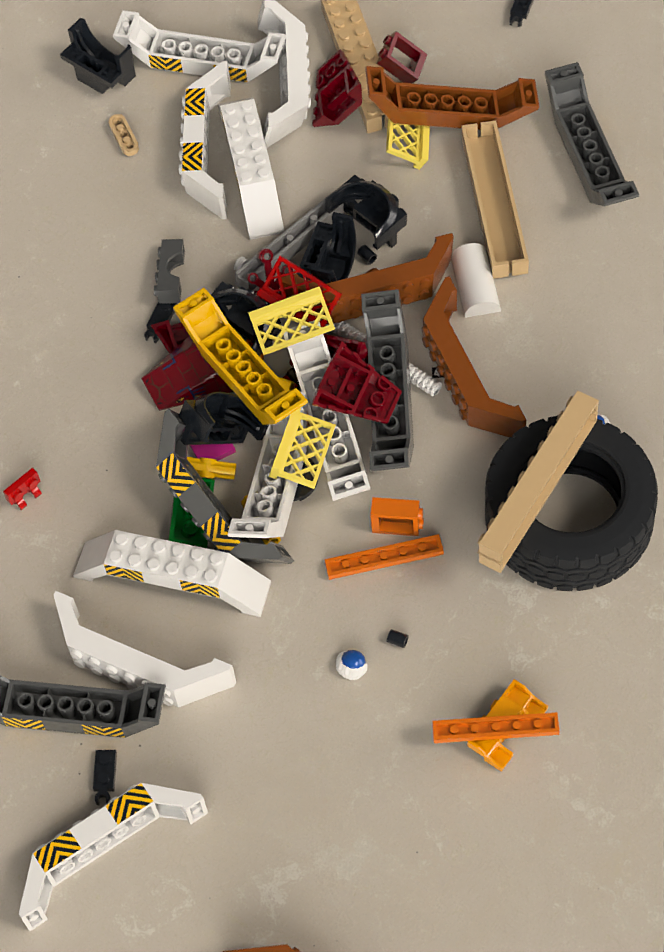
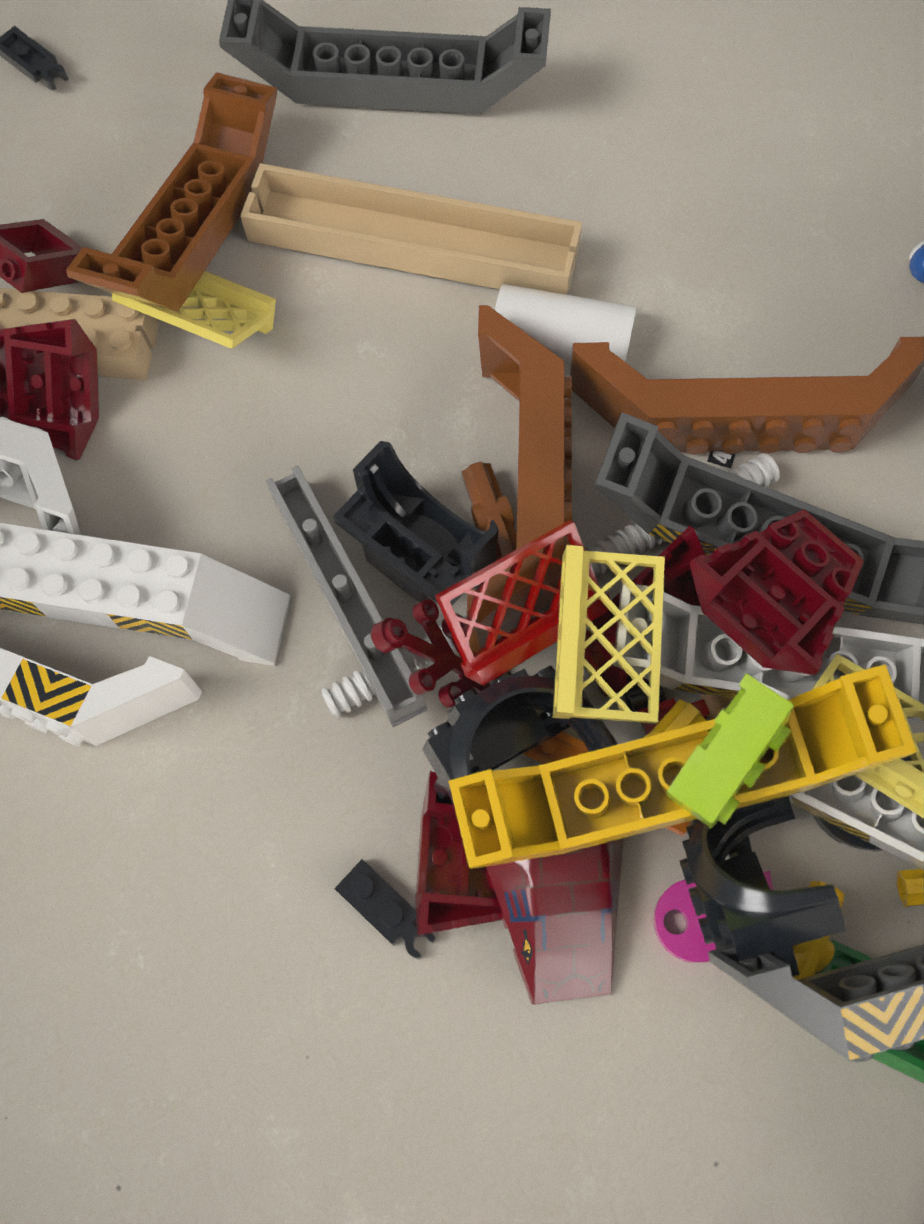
camera: 70 degrees left, 10 degrees up
(171, 256) = (331, 861): dark grey arch -> none
(254, 371) = (732, 753): none -> lime wedge
(367, 254) = (424, 471): black hinge -> none
(376, 212) = (342, 418): black piece -> none

